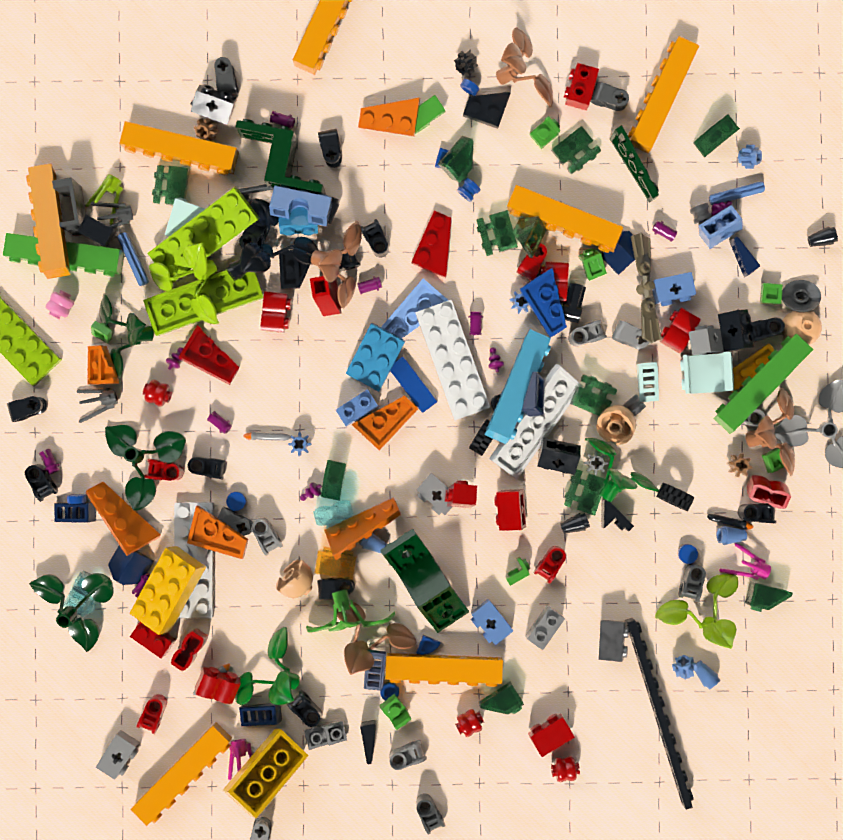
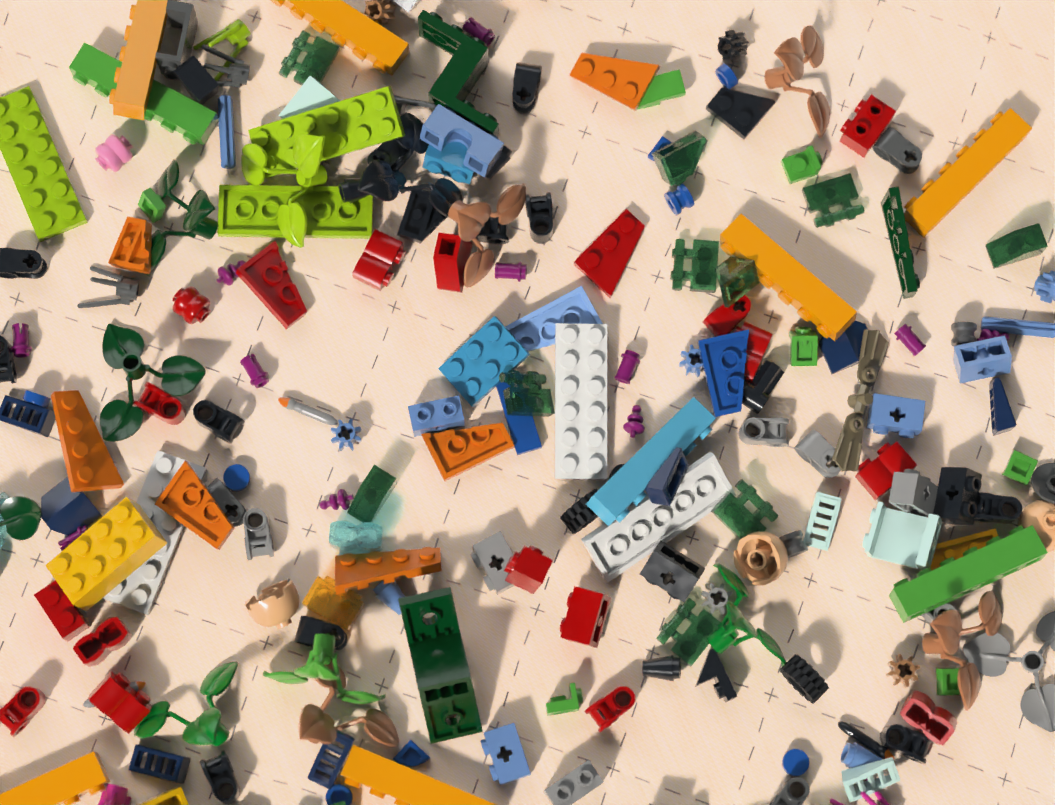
camera: 15 degrees right, 10 degrees down
(415, 375) = (526, 401): none -> clear green plate
(742, 548) = (857, 774): none -> light aqua slope

